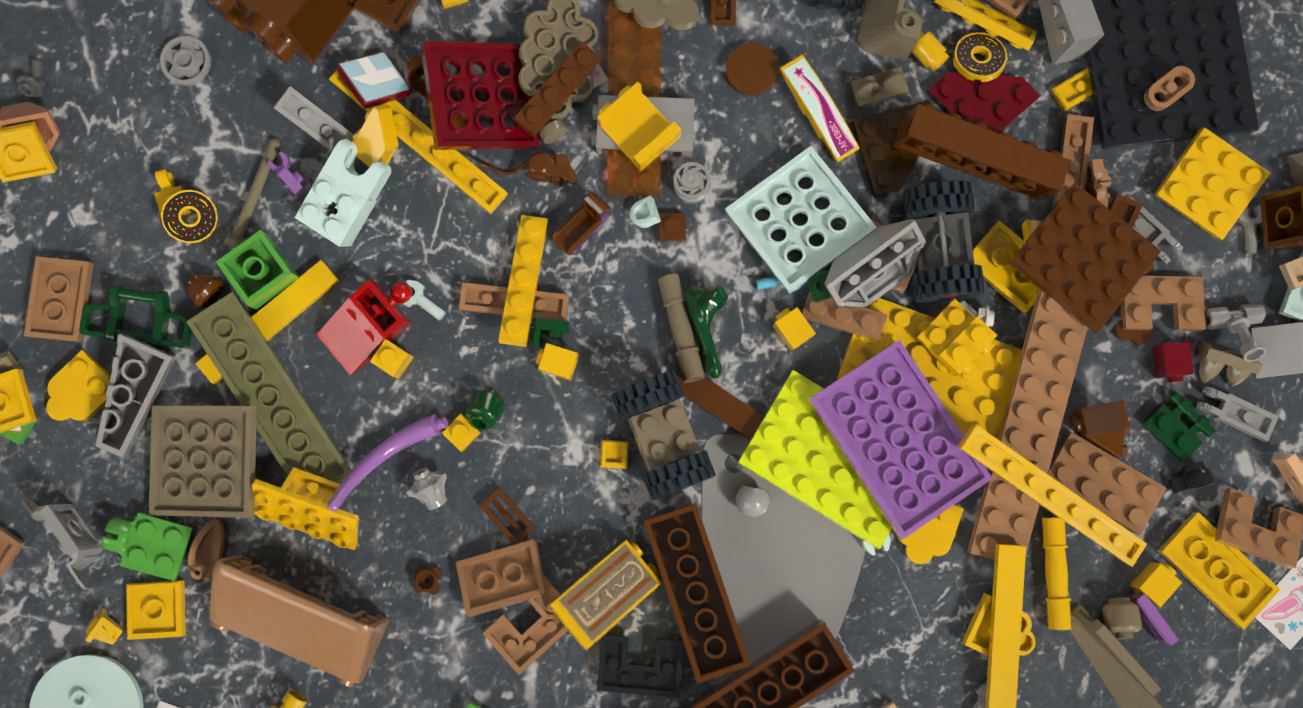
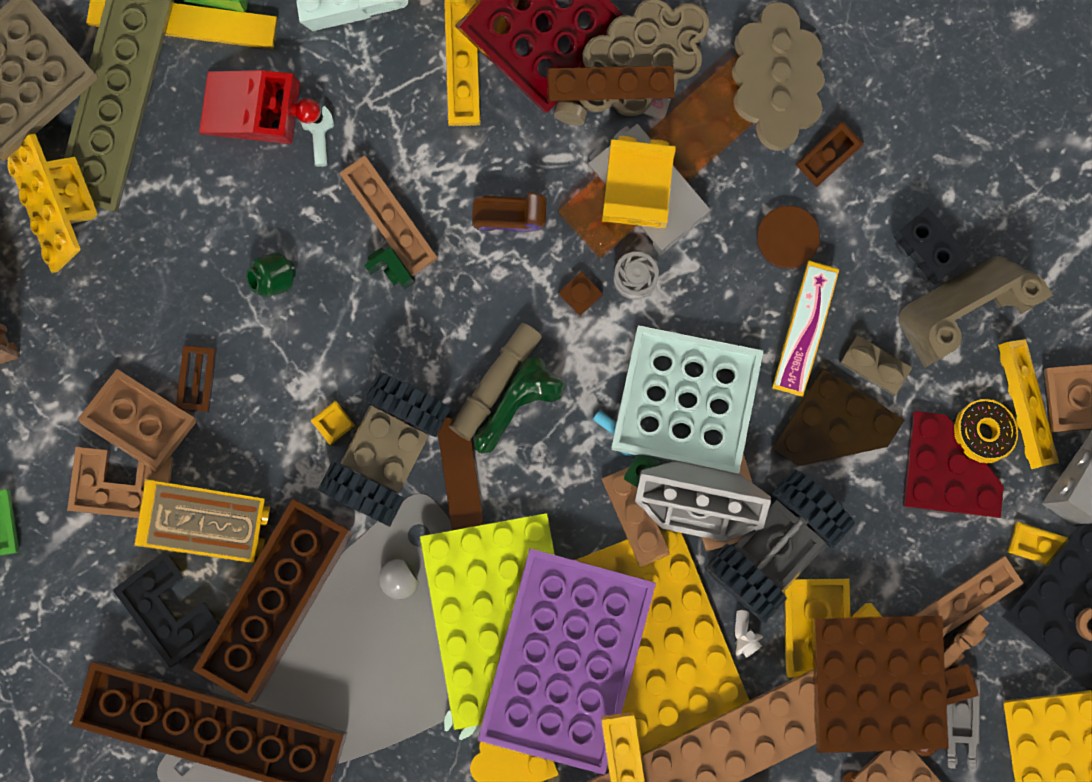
camera: 50 degrees right, 0 degrees up
(391, 359) = (243, 155): yellow brick -> none
(411, 434) = (190, 230): medium lavender animal -> none
(423, 573) = (71, 356): reddish brown plate -> none
(429, 488) = (160, 288): light grey rock -> none
(461, 433) = (232, 273): yellow plate -> none
(523, 281) = (413, 206): yellow plate -> none
(543, 167) = (530, 134): reddish brown animal -> none
(557, 361) = (369, 300): yellow brick -> none
(644, 212) = (571, 258): light aqua tile -> none
(793, 328) = (584, 480): yellow brick -> none
(930, 51) = (949, 380): yellow brick -> none
(957, 338) = (705, 634): yellow plate -> none
(981, 152) = (892, 507): reddish brown brick -> none

